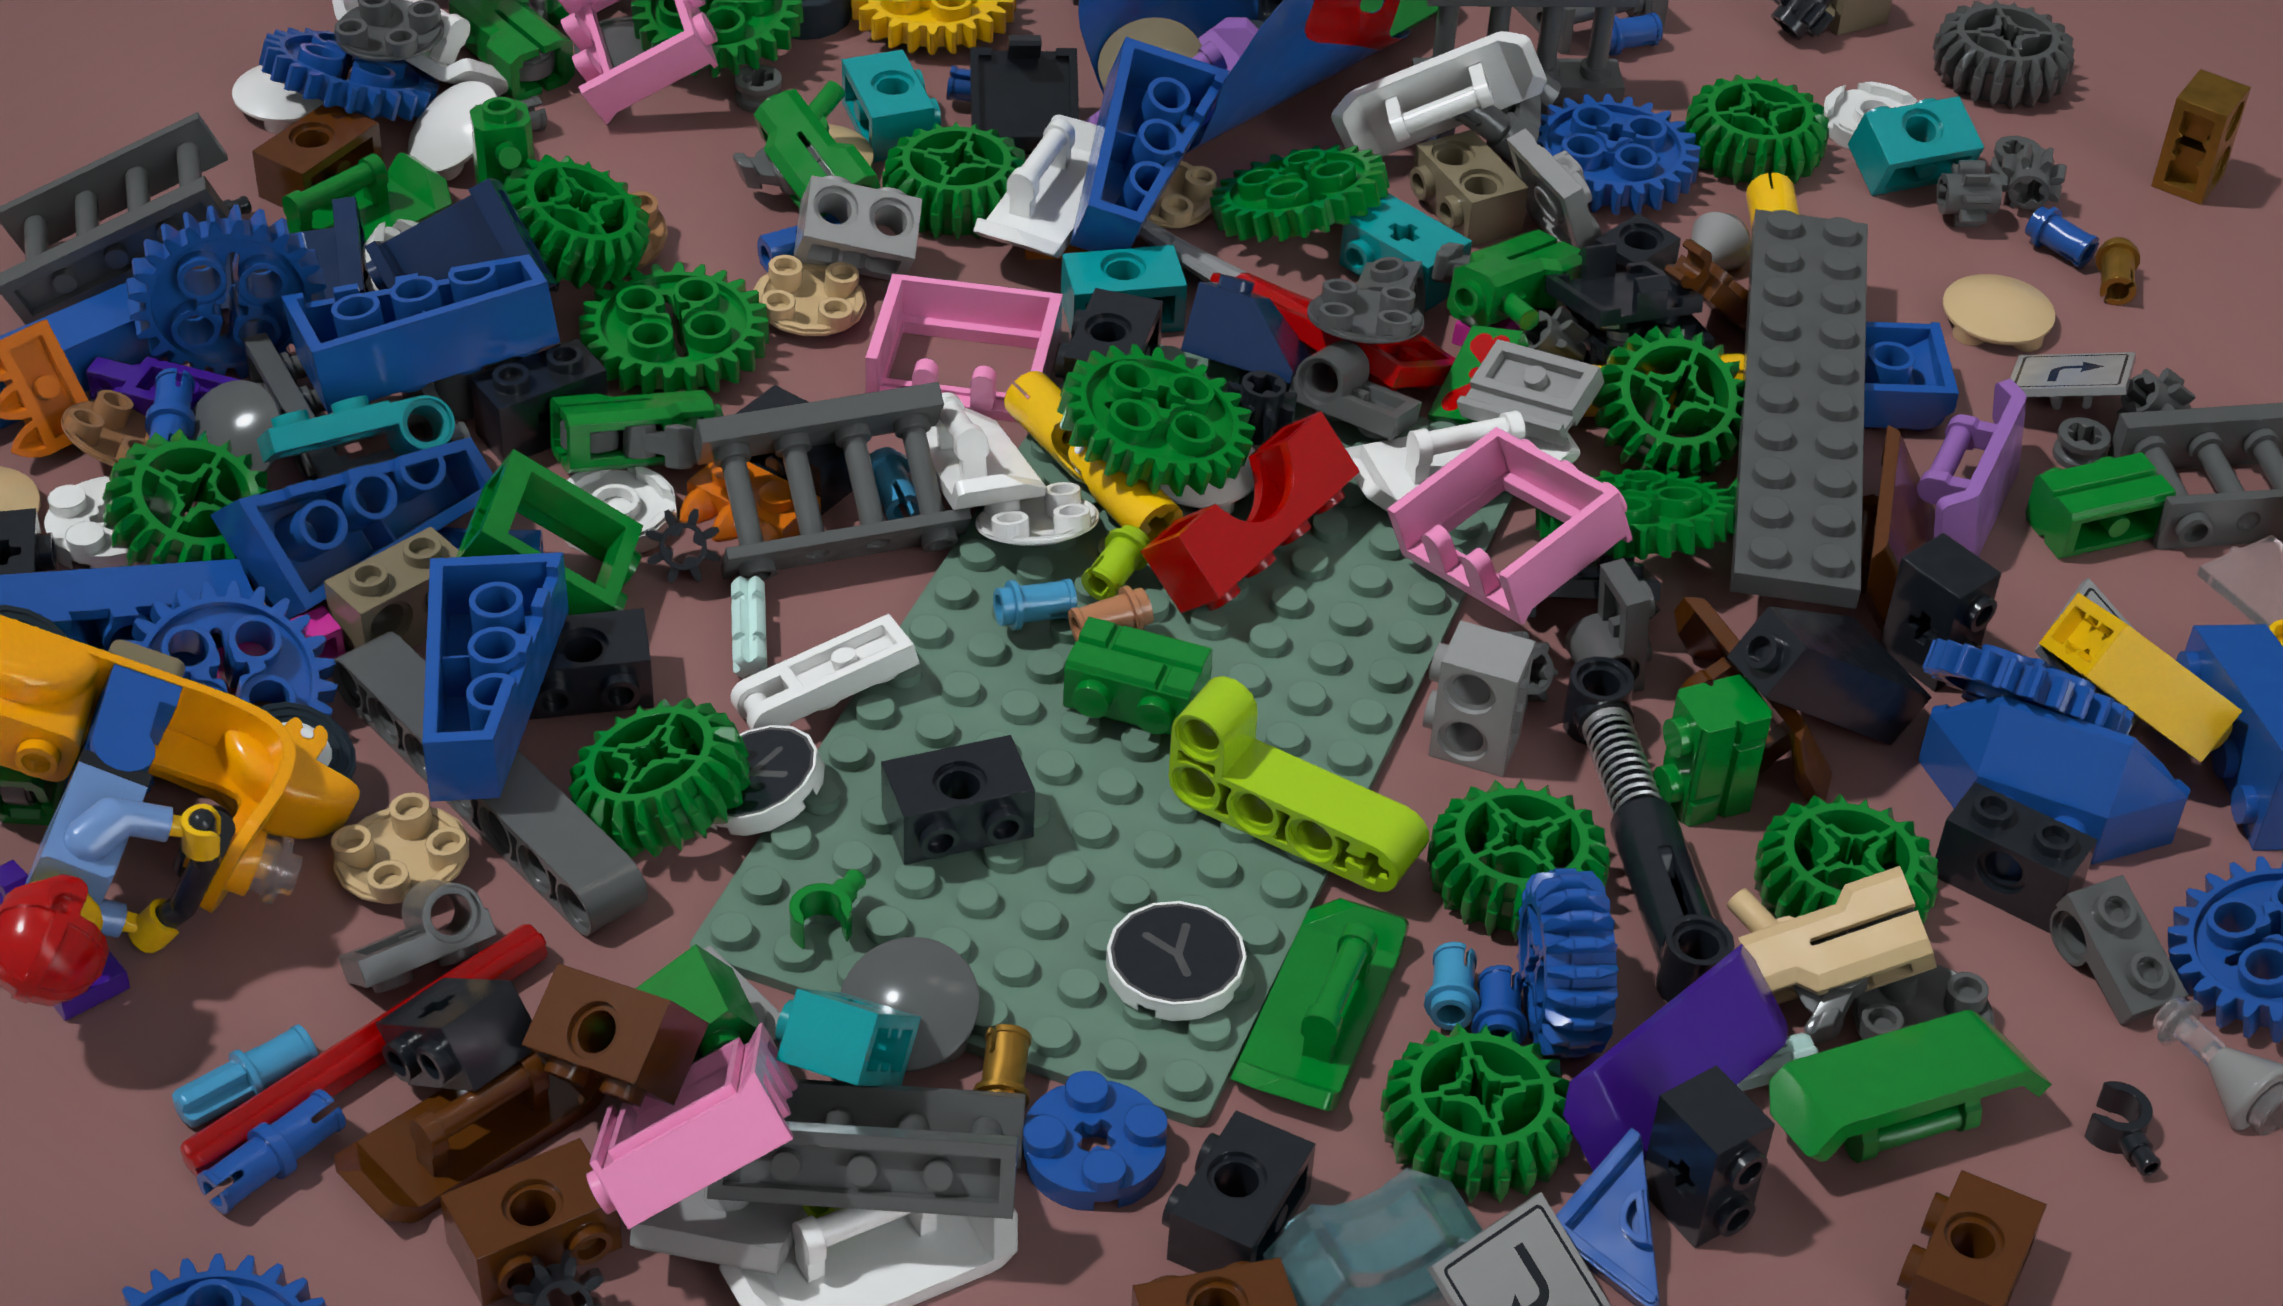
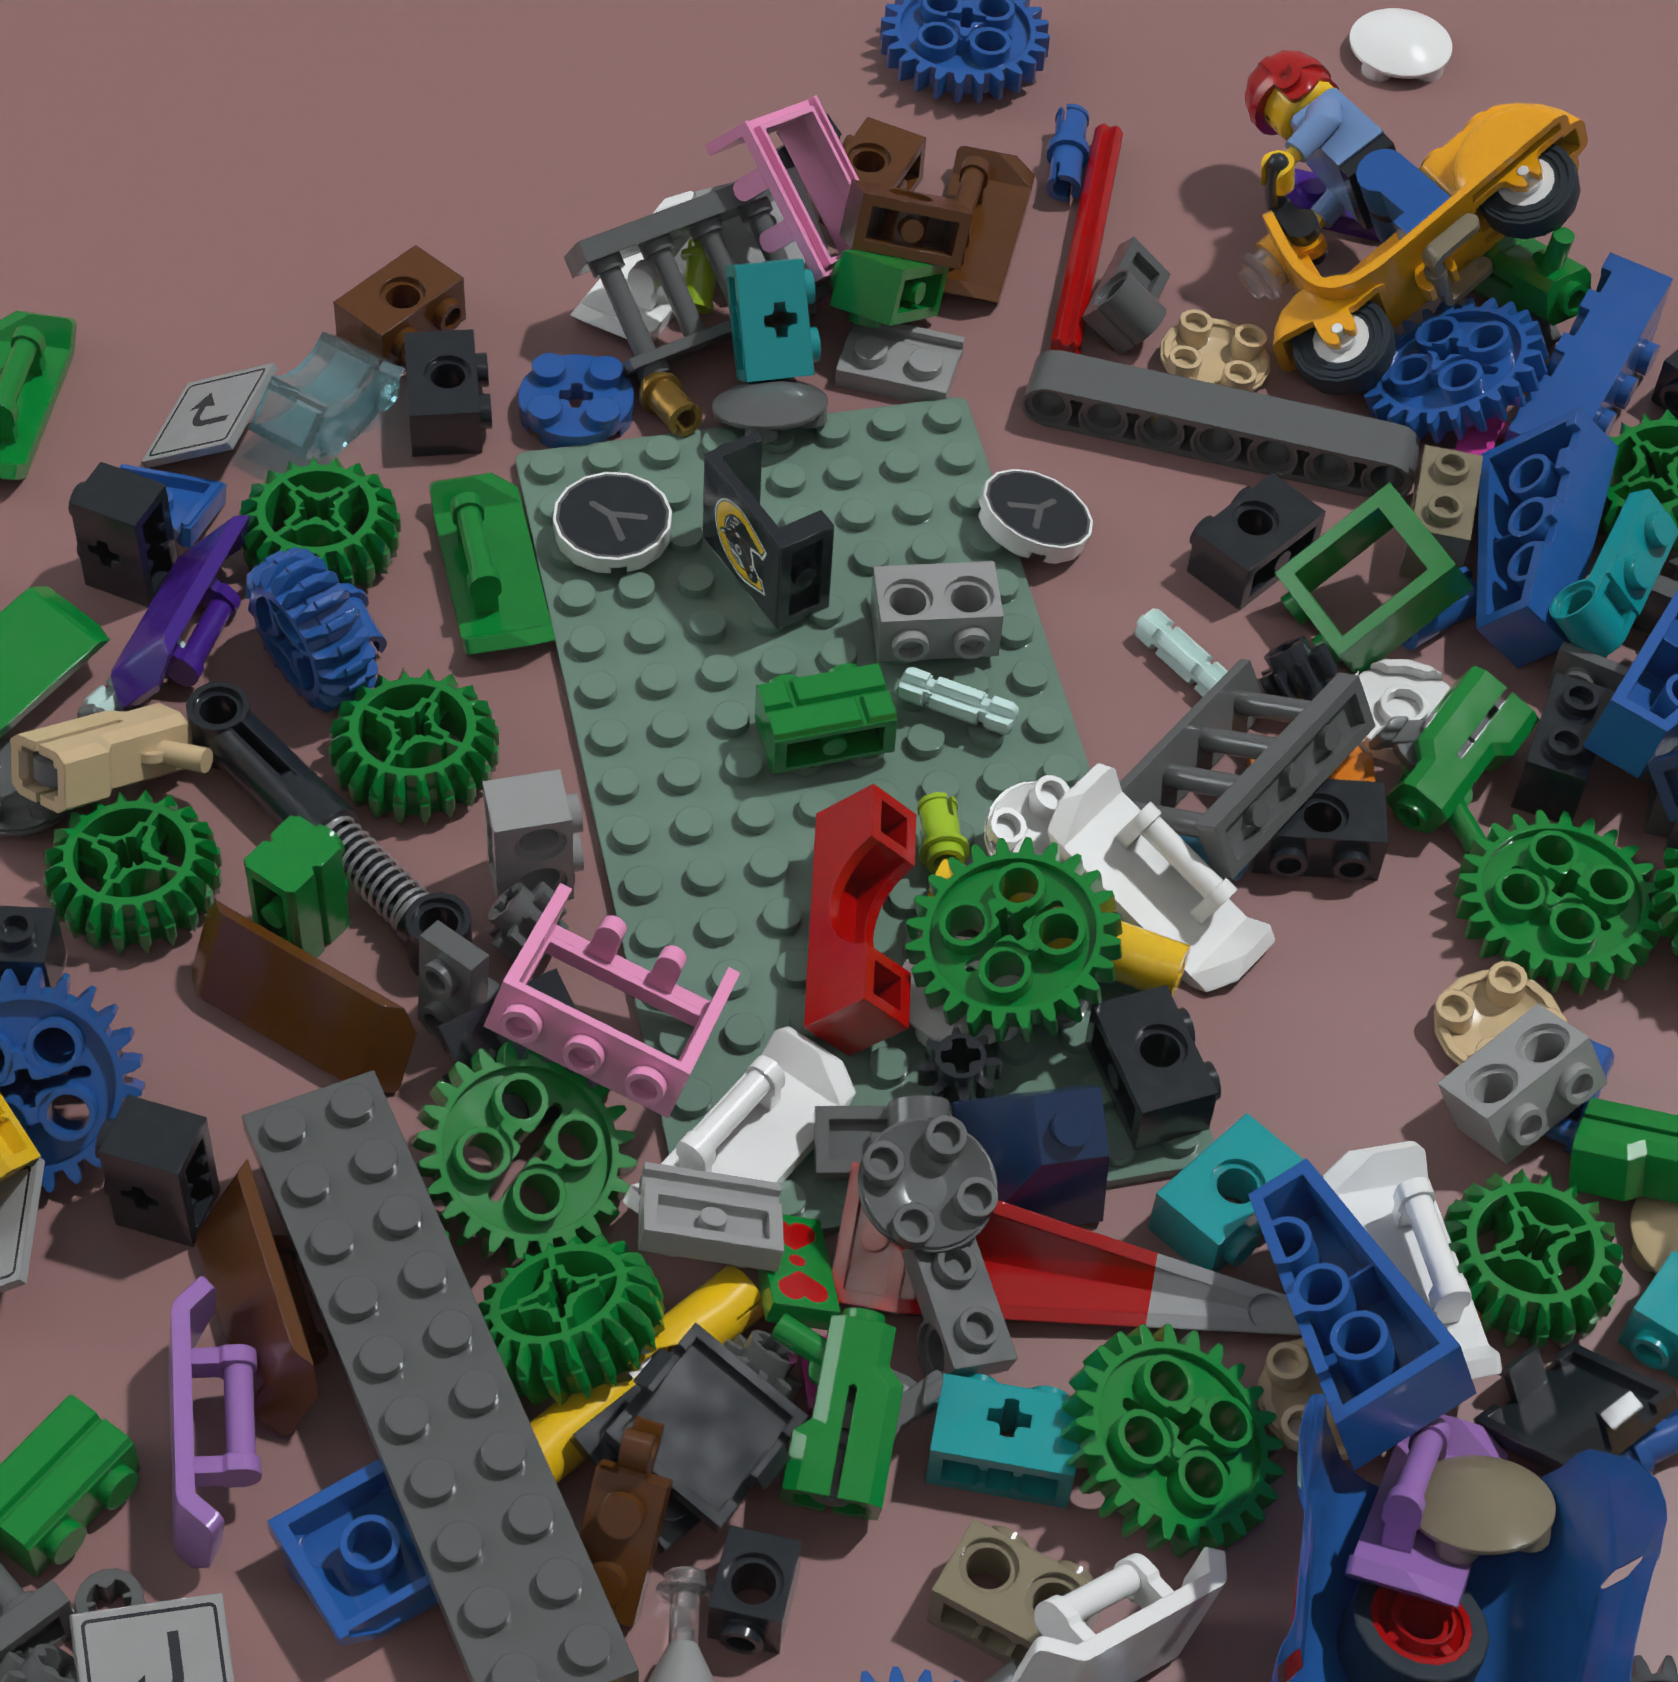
camera: 145 degrees right, 10 degrees up
(243, 1076) = (1135, 187): dark azure axle -> none
(456, 1034) = (1022, 224): black brick -> none
(485, 662) = (1276, 412): blue wedge -> none
(662, 776) = (1094, 462): green gear -> none
(825, 674) = (1067, 616): white plate -> none
(825, 899) = (890, 444): green piece -> none
(946, 703) = (936, 611): none -> light grey brick
(957, 799) = (875, 528): black brick -> none
(967, 314) = (1294, 978): bright pink window -> none
(1000, 653) = (958, 701): none -> light aqua axle
(1033, 602) = (983, 744): dark azure pin -> none
(1062, 830) = (779, 567): none -> black panel
(1127, 608) = (904, 770): nougat pin -> none
(1283, 799) = (620, 670): lime beam -> none
(1452, 992) = (395, 612): dark azure pin -> none
(1555, 192) = (887, 1581): light grey hinge -> none
(1829, 671) = (233, 998): black slope -> none

